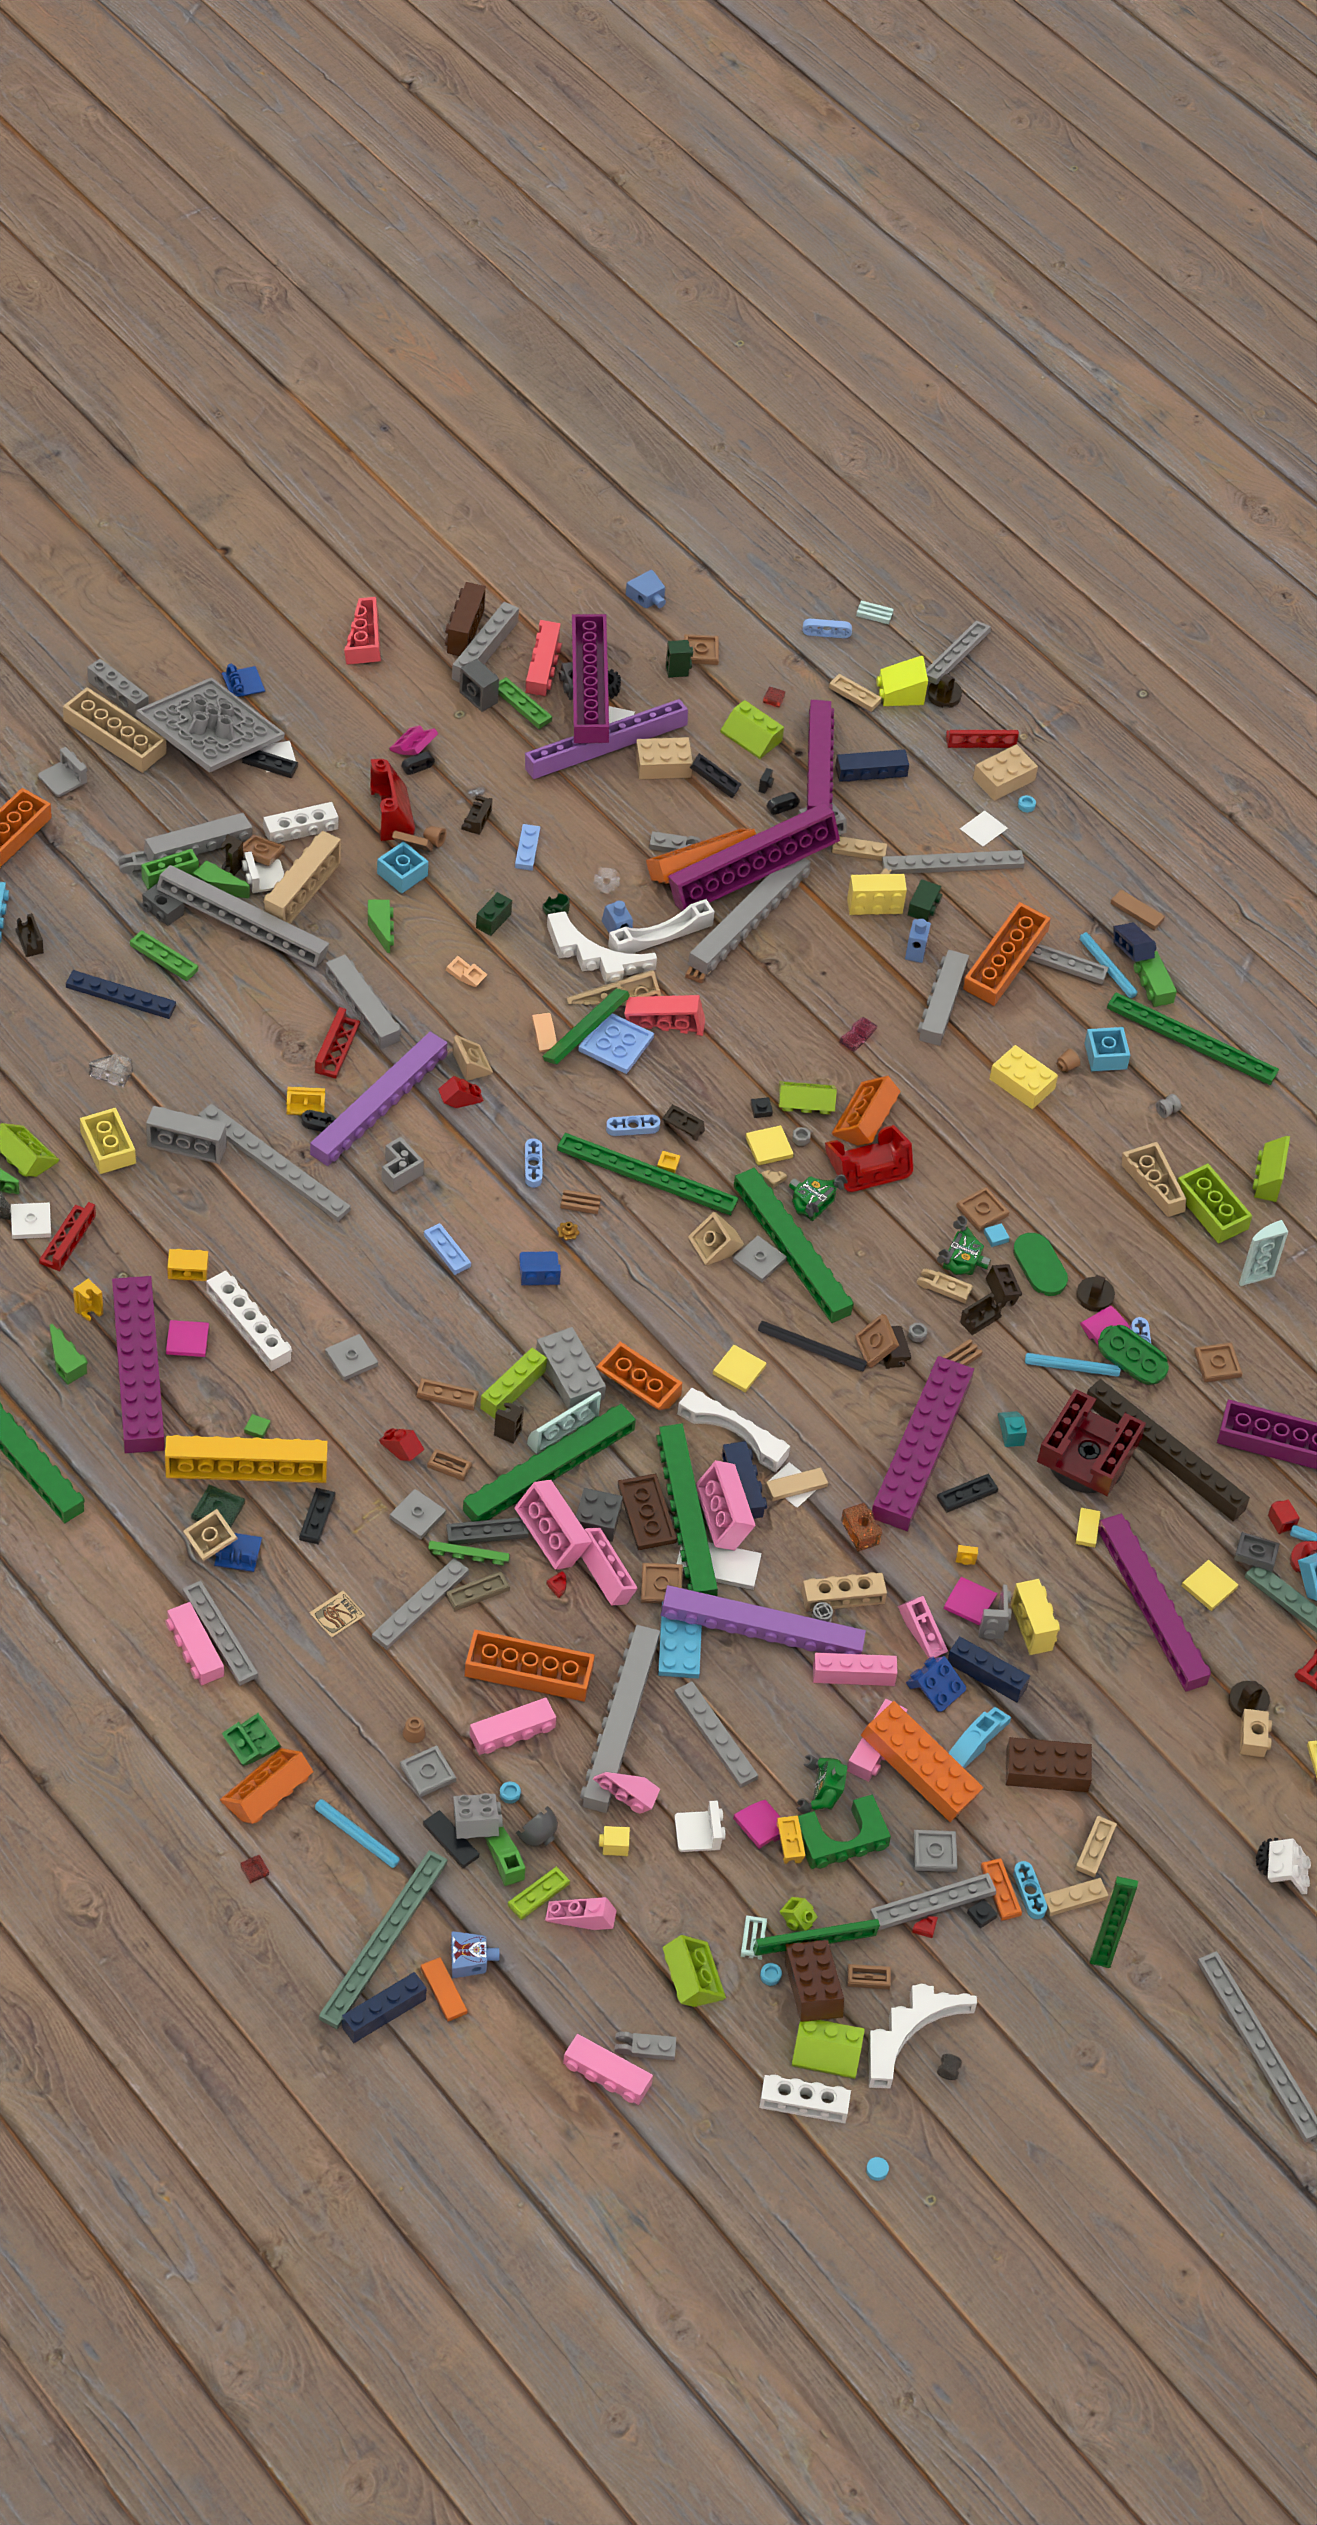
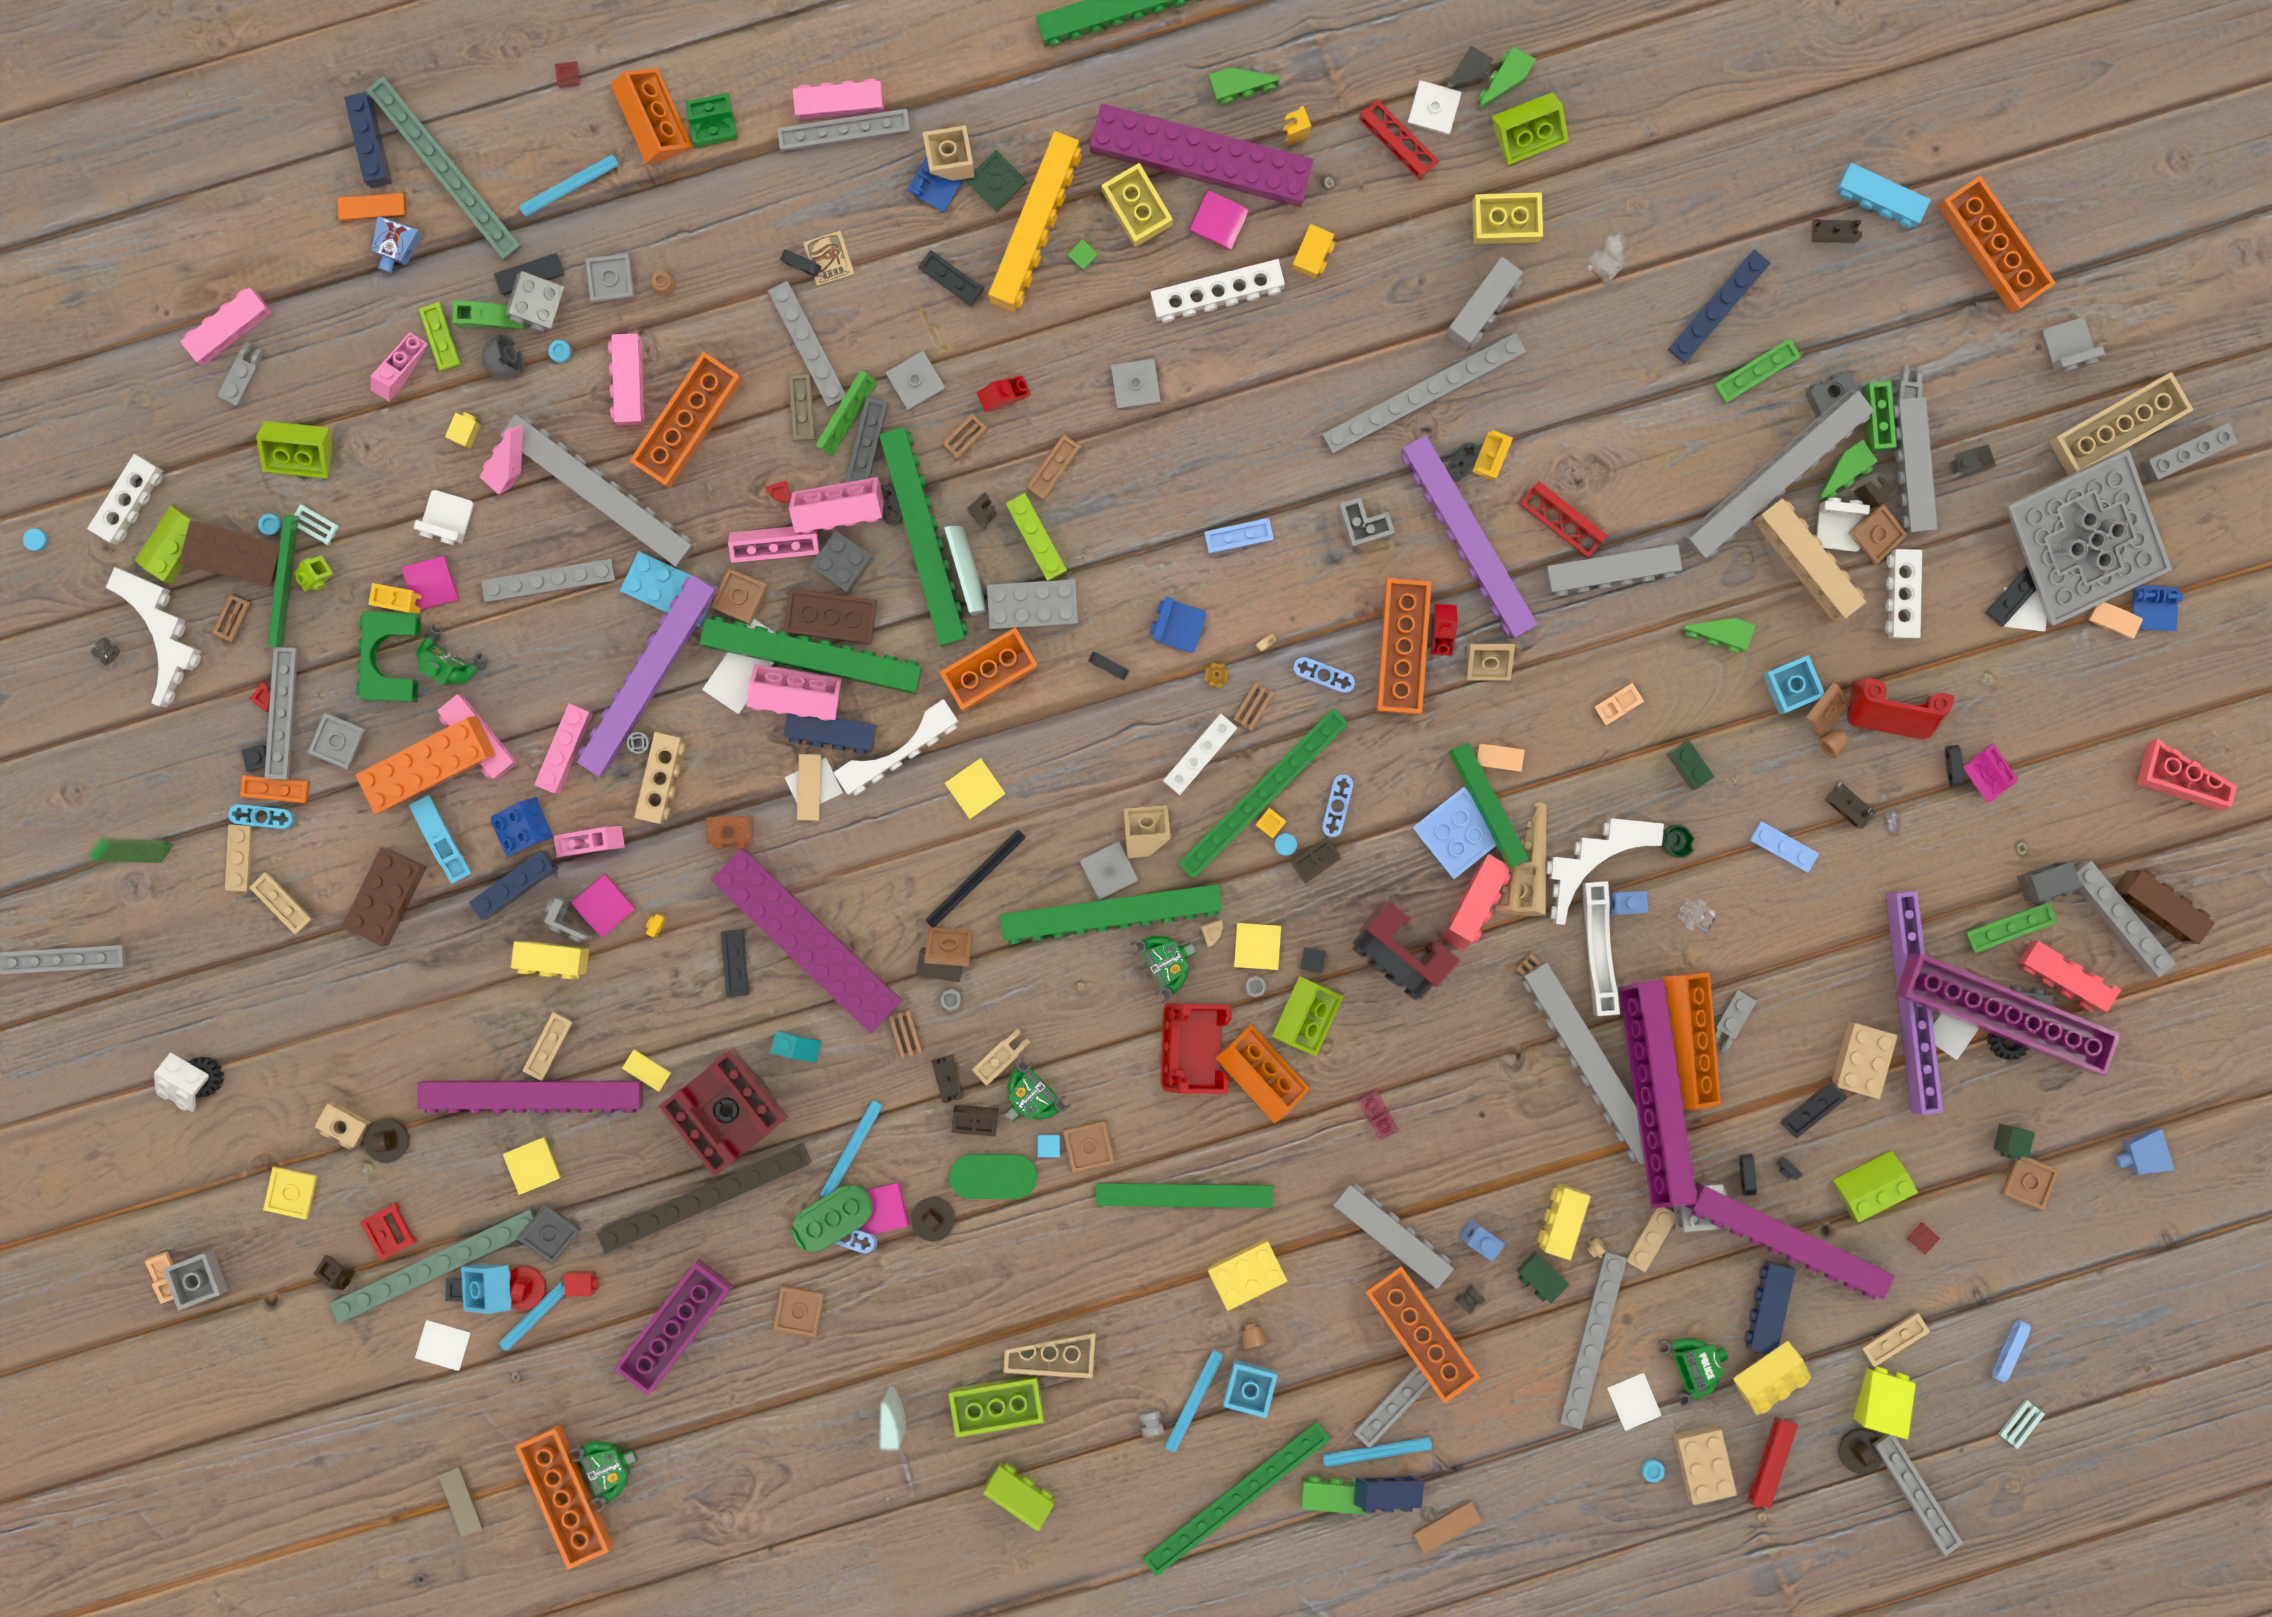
camera: 120 degrees right, 35 degrees up
(181, 812) = (1970, 461): none -> clear smoke slope
(200, 1393) = (1137, 205): none -> light yellow brick
(263, 699) = (2115, 619): none -> light nougat slope
(352, 1627) = (800, 263): none -> black beam
(487, 1112) = (1403, 646): none -> orange brick
(526, 1207) = (1266, 642): none -> tan tile
(595, 1304) = (1108, 666): none -> black beam
(637, 1221) = (1200, 754): none -> white brick
(680, 1148) = (1285, 844): none -> medium azure tile
(728, 1036) = (1398, 963): none -> piece
(923, 745) = (1772, 1378): none -> light yellow brick
(937, 793) = (1698, 1366): none -> green torso
(966, 939) = (1469, 1299): none -> clear smoke wheel
(986, 1137) = (1184, 1195): none -> green tile
(1107, 1603) = (548, 1046): none -> tan plate
(1136, 1086) = (1193, 1401): none -> medium azure axle

